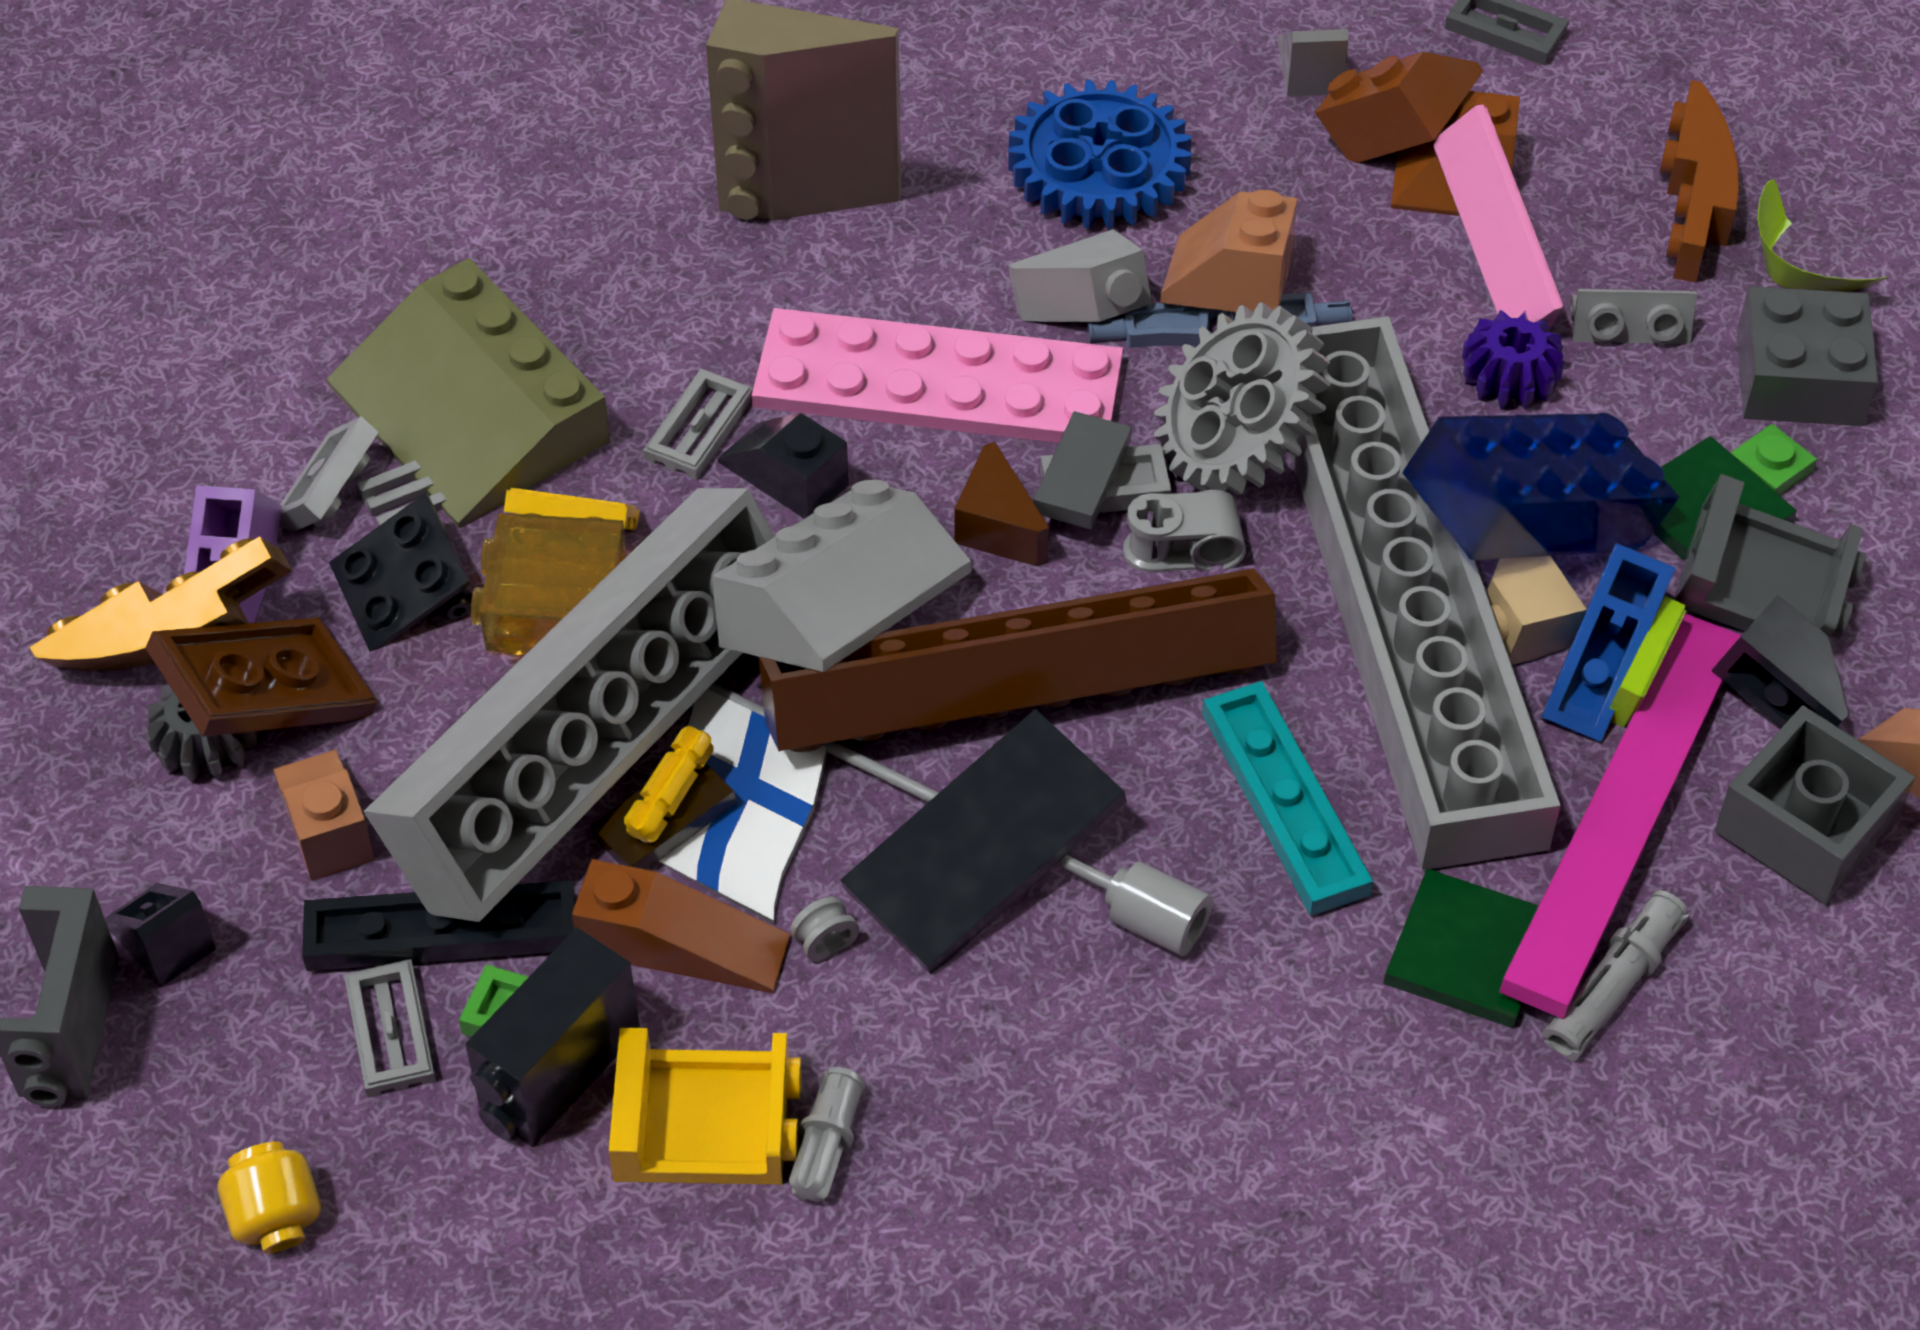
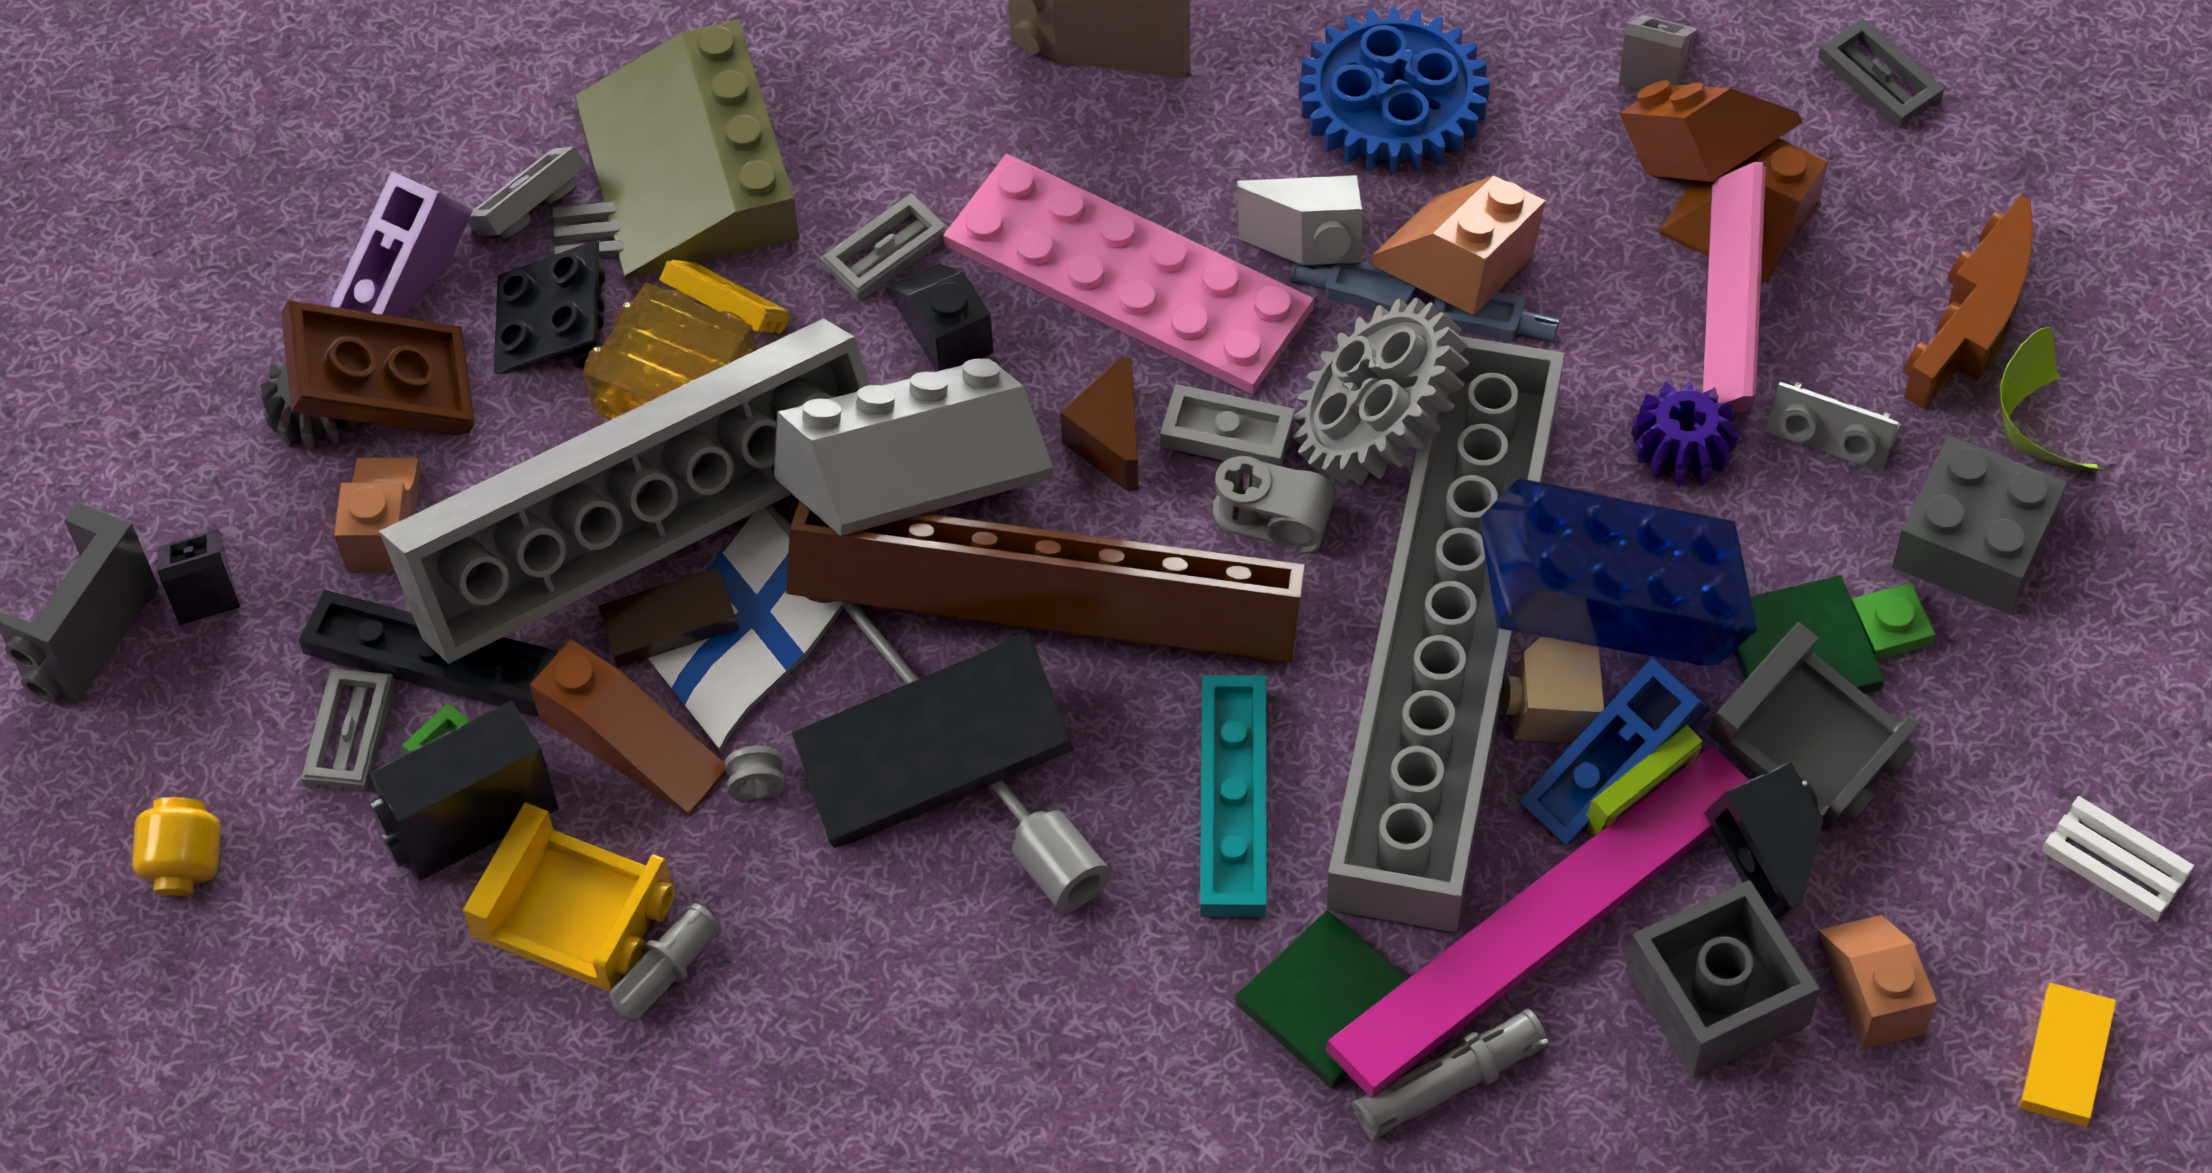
camera: 25 degrees right, 5 degrees up
(119, 628) = (339, 281): slope -> none
(668, 784) = (677, 591): yellow axle -> none
(1082, 469) = (1202, 411): dark grey tile -> none

